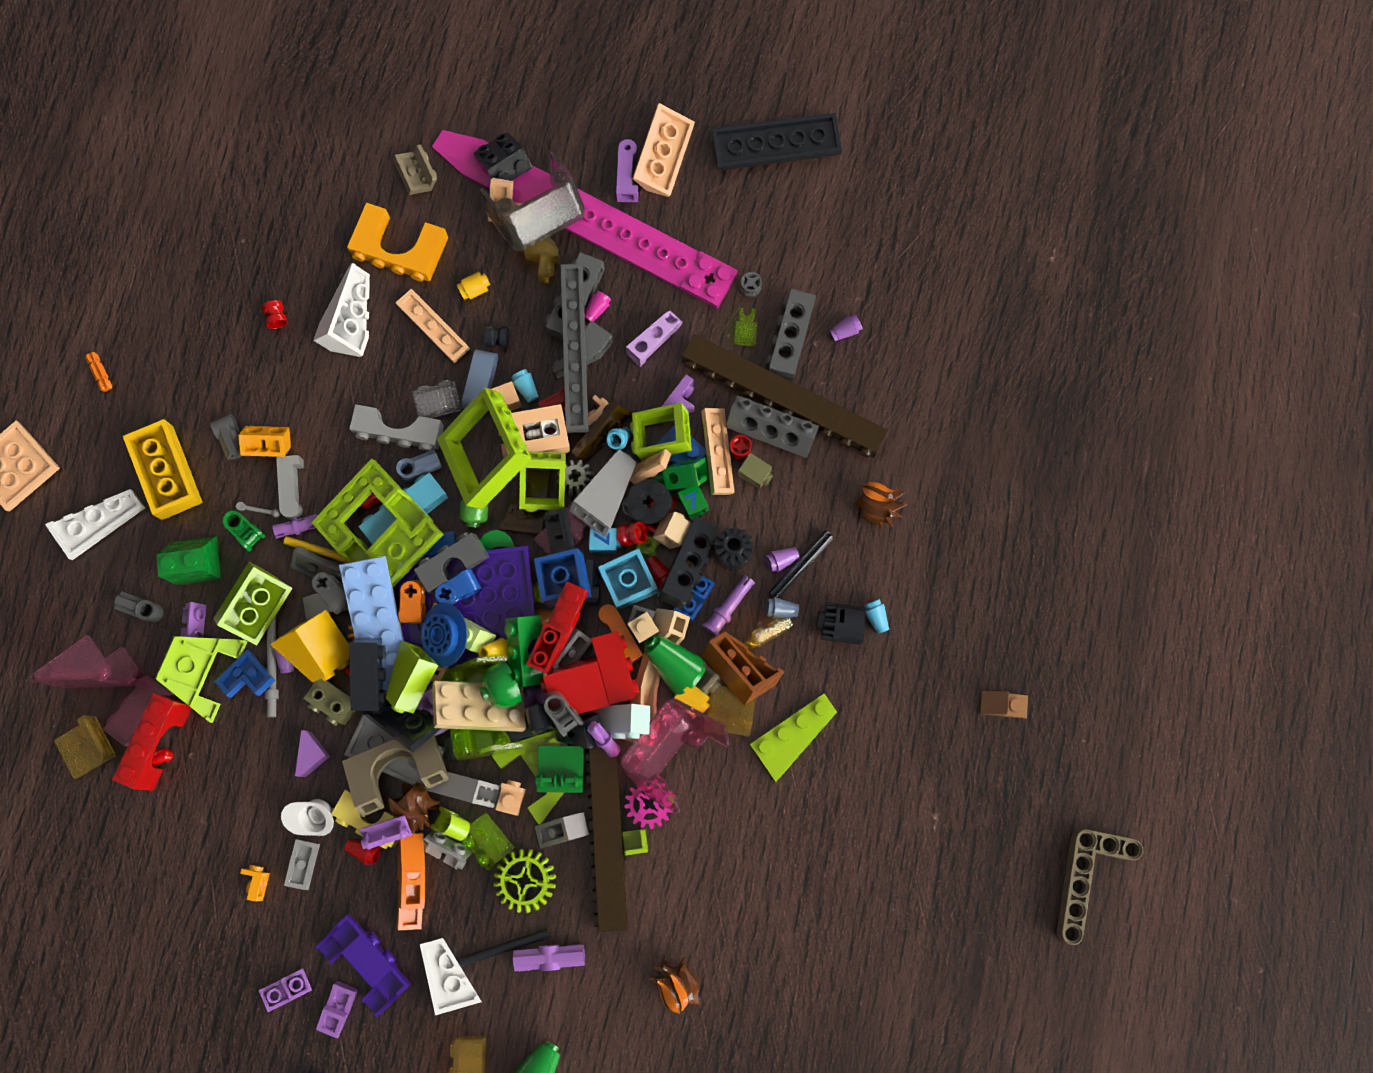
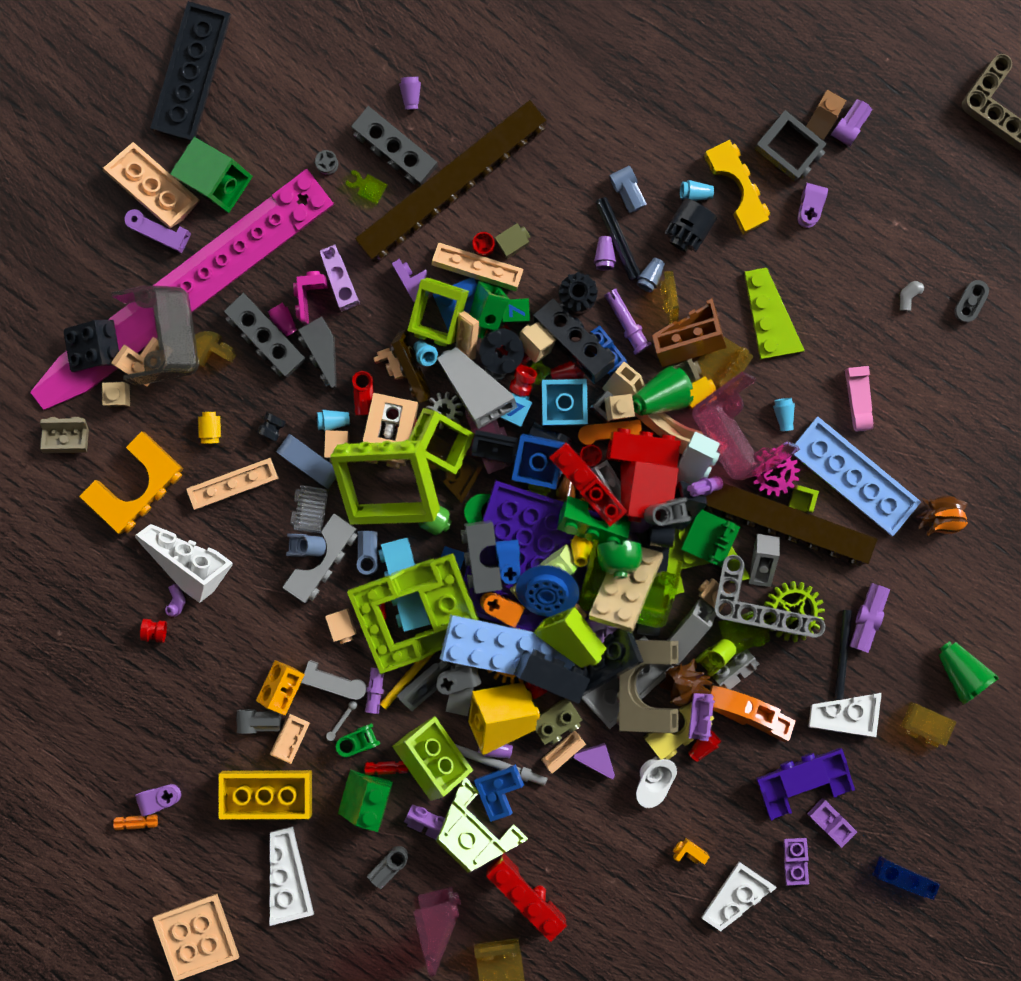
camera: 70 degrees left, 10 degrees up
(125, 380) = (155, 800): none -> medium lavender piece
(125, 721) = (486, 902): clear pink brick -> none
(223, 470) = (289, 738): none -> light nougat plate
(228, 564) = (389, 767): none -> red axle
(230, 945) = (737, 894): none -> white wing
(302, 864) = (692, 805): light grey plate -> none
(305, 720) = (563, 751): none -> light nougat tile
(307, 325) = (177, 602): none -> medium lavender arm
(341, 471) = (341, 626): none -> light nougat brick
(402, 408) = (304, 545): none -> sand blue piece
(468, 197) = (116, 394): none -> tan brick
(508, 843) = (759, 611): none -> light grey beam
(574, 348) = (320, 356): dark grey plate -> none
(590, 625) = (593, 455): none -> red wheel
(625, 309) = (311, 281): none -> dark pink bracket
(678, 884) = (855, 476): none -> light blue plate
(694, 194) = (211, 174): none -> green slope
(708, 789) = (784, 412): none -> medium azure cone
(754, 854) = (859, 397): none -> bright pink leg
(772, 426) = (477, 205): dark grey brick -> none
(852, 550) = (625, 184): none -> sand blue piece
(874, 857) = (908, 293): none -> light grey arm
(880, 503) = (595, 139): reddish brown hair -> none
(894, 922) = (971, 302): none -> dark grey plate
(916, 629) = (725, 161): none -> yellow arch
(917, 728) = (812, 201): none -> medium lavender piece
(966, 663) = (763, 148): none -> dark grey window
(1002, 731) = (850, 126): none -> medium lavender piece

